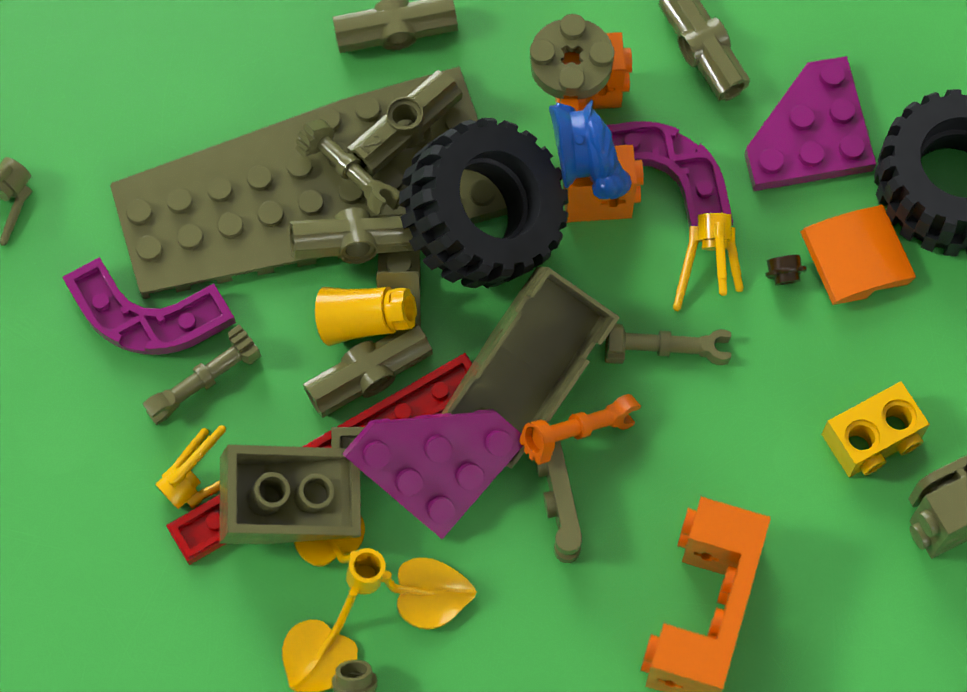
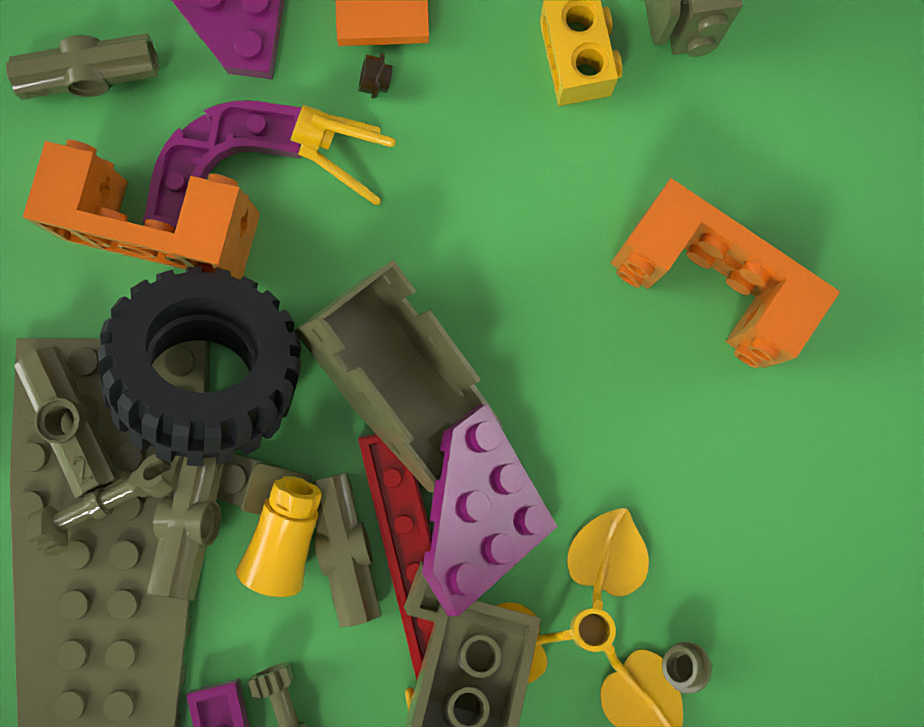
camera: 75 degrees left, 15 degrees up
(541, 437) = (497, 390): orange piece -> none
(560, 504) = (555, 390): olive plate -> none
(577, 36) = (31, 194): olive plate -> none
(588, 151) = (186, 224): blue piece -> none
(664, 344) = (415, 224): olive piece -> none

